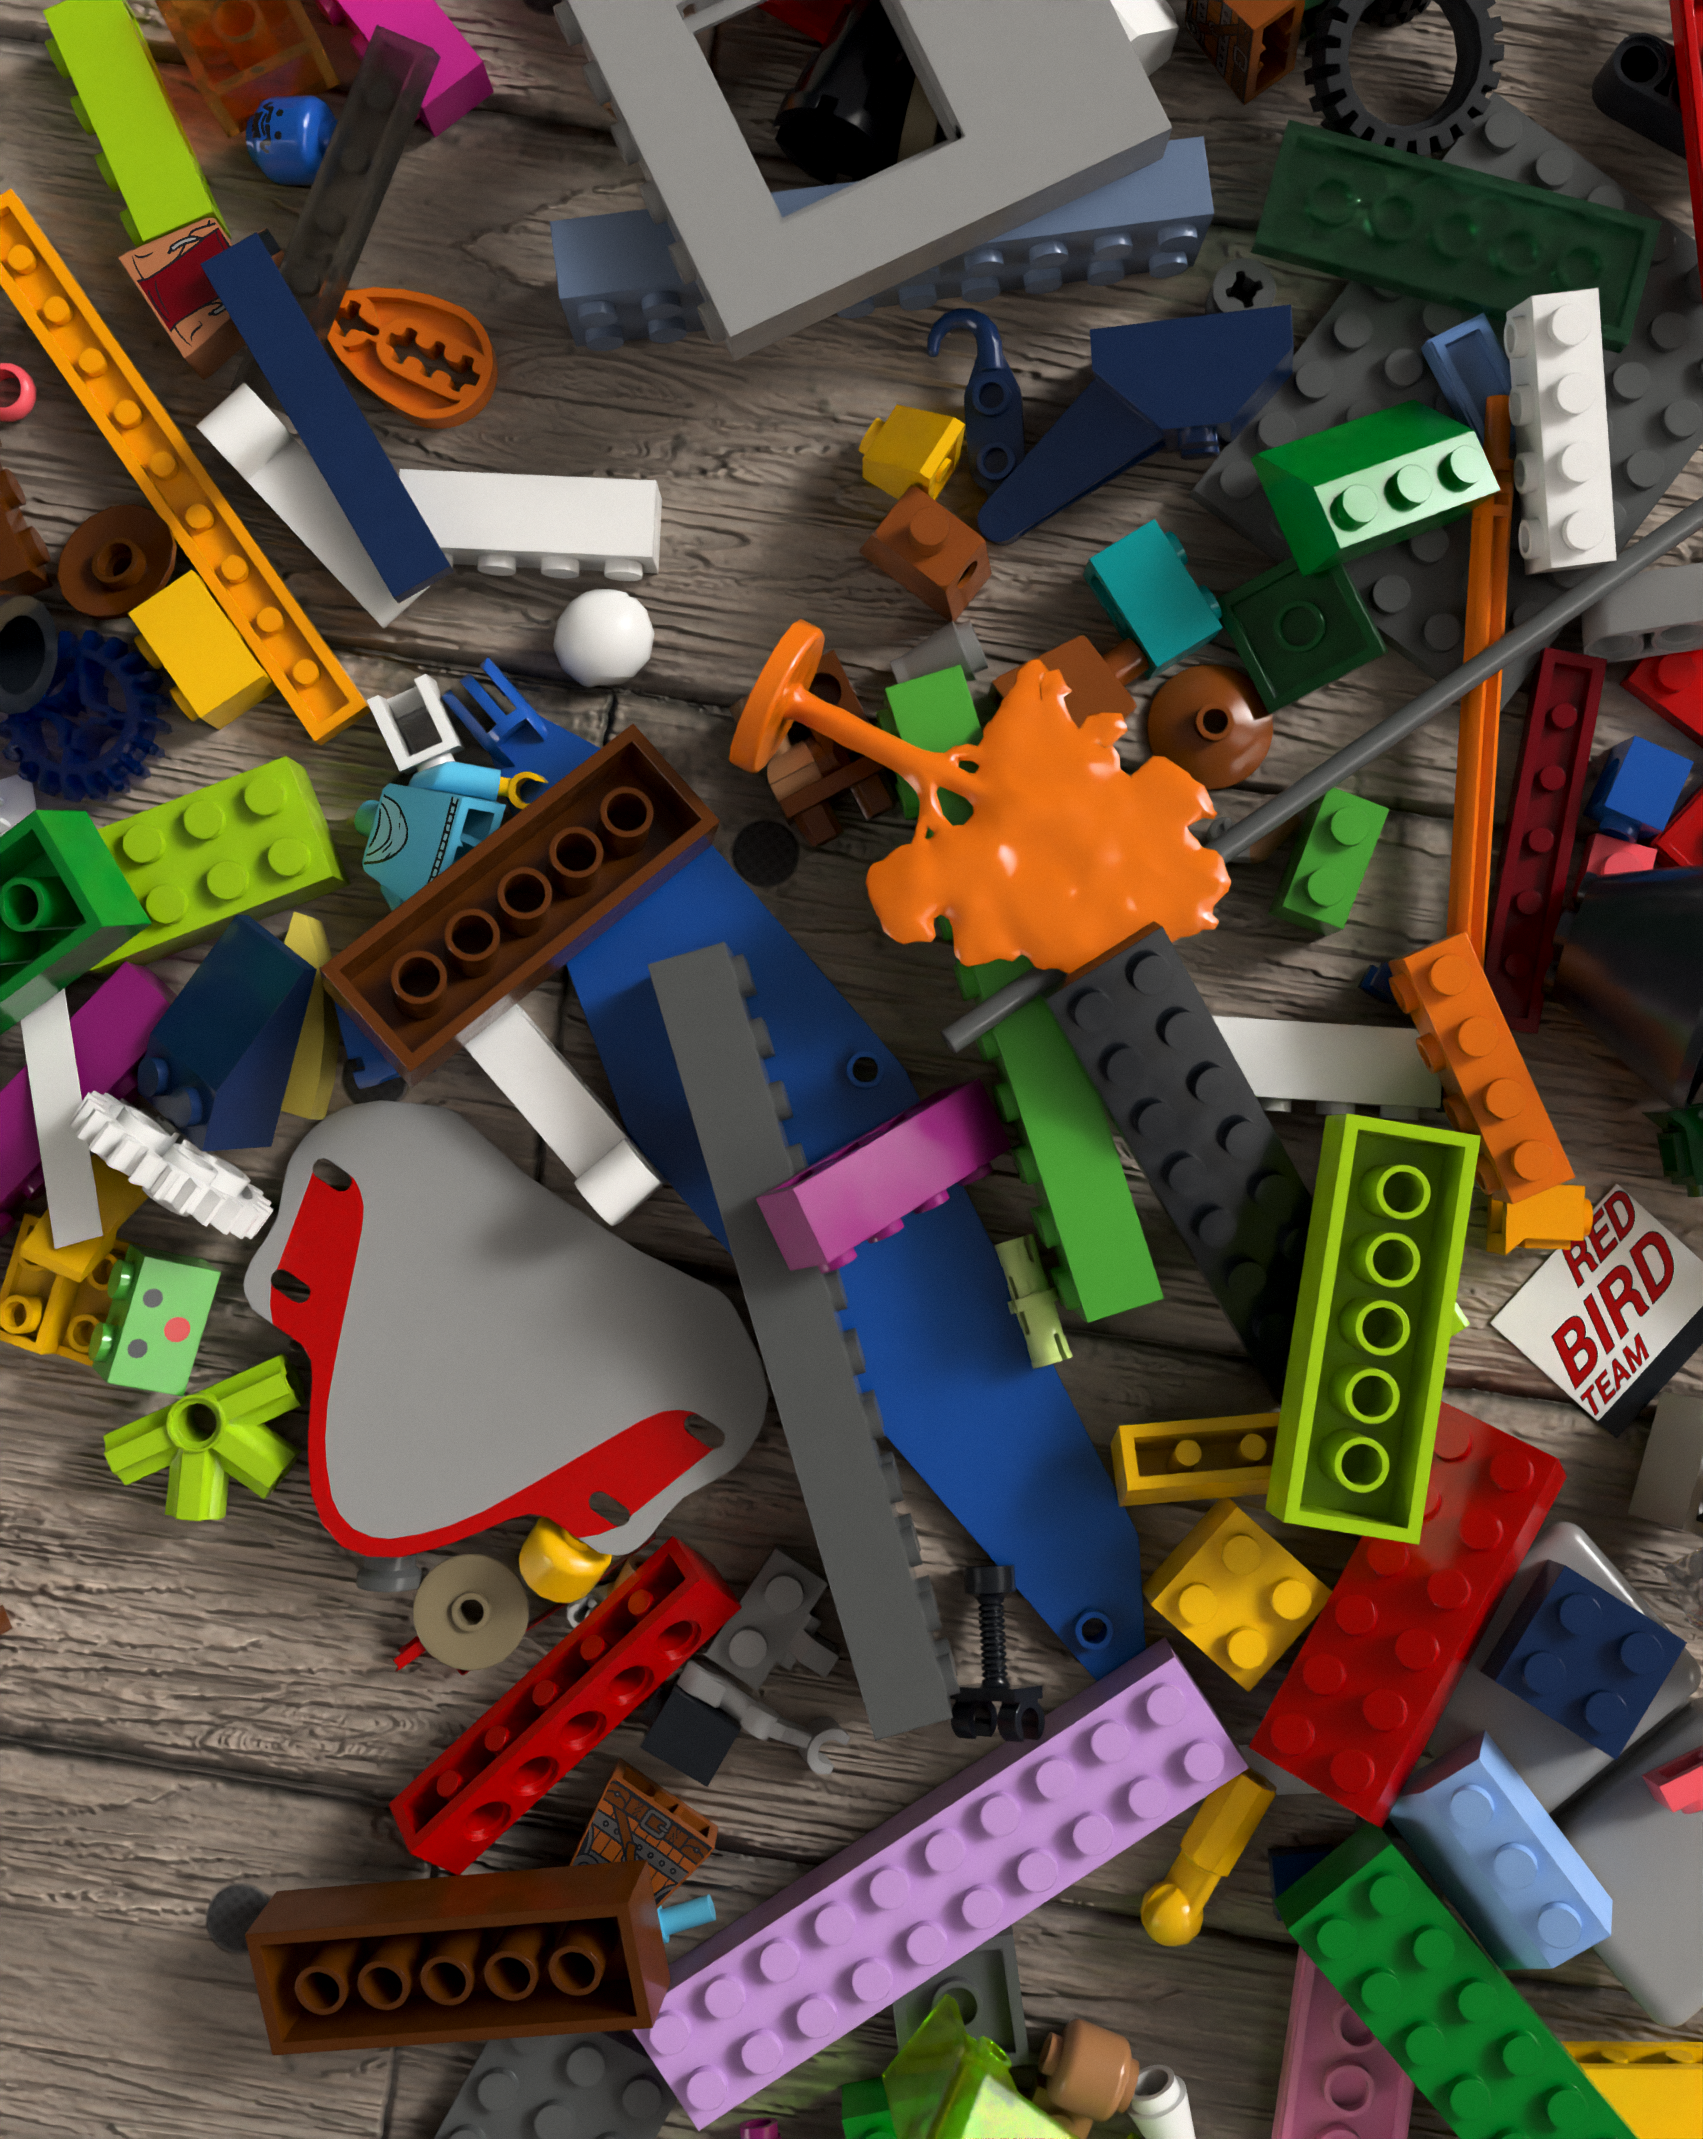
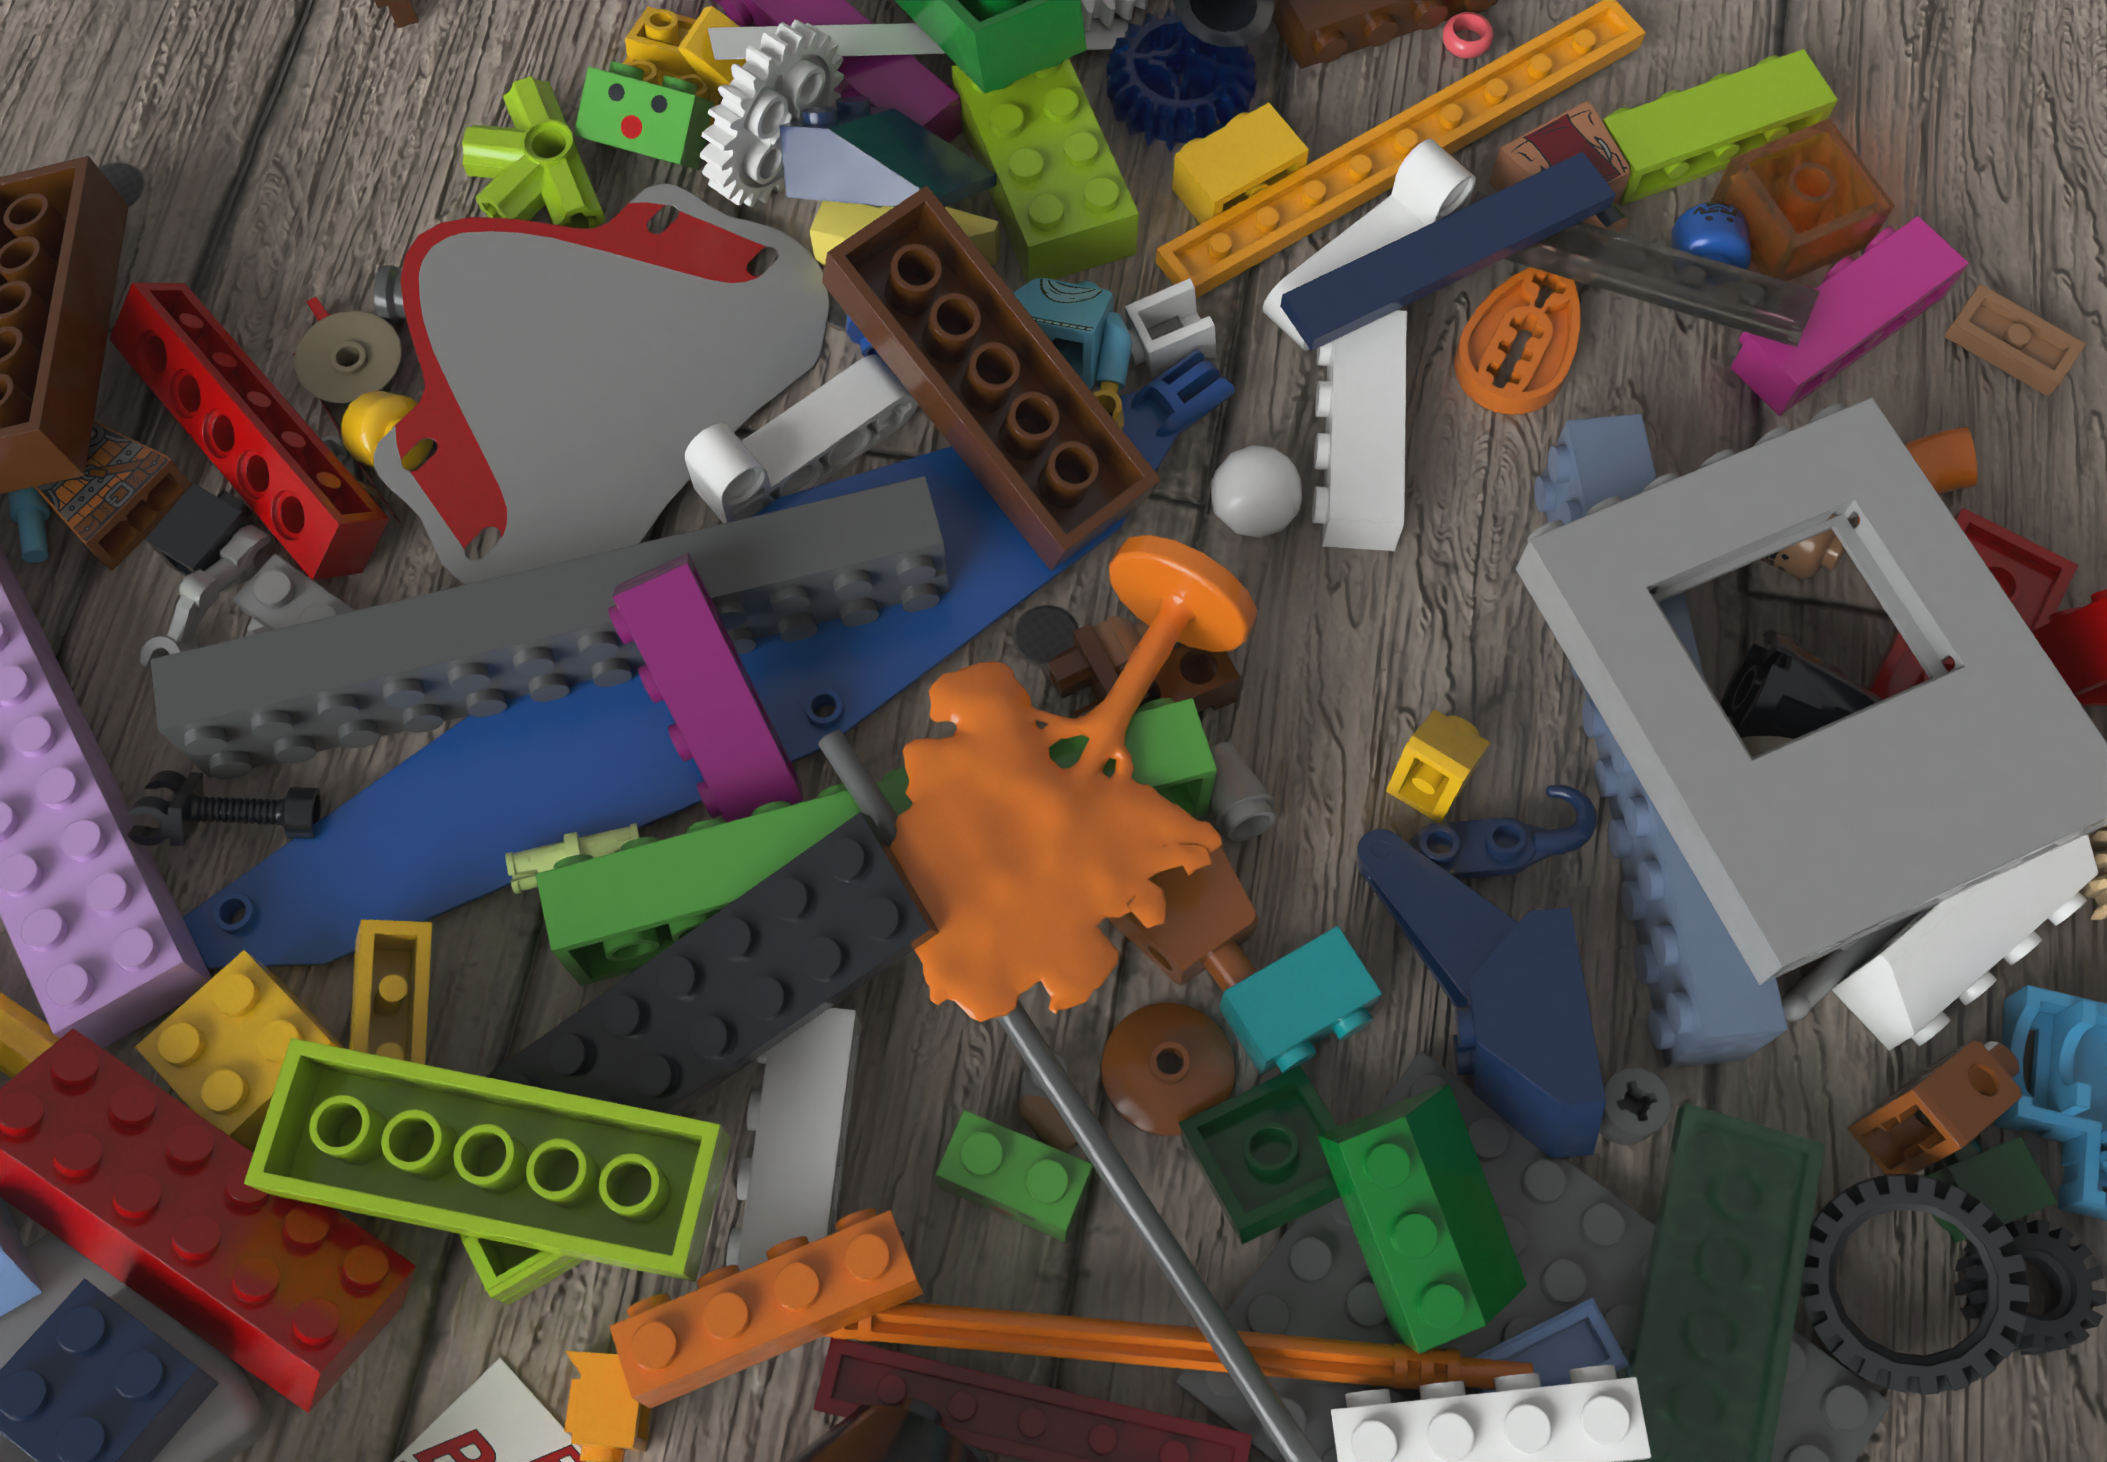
camera: 90 degrees right, 20 degrees down
(116, 561) = (1318, 103): reddish brown dish -> none
(928, 553) = (1346, 769): dark orange torso -> none

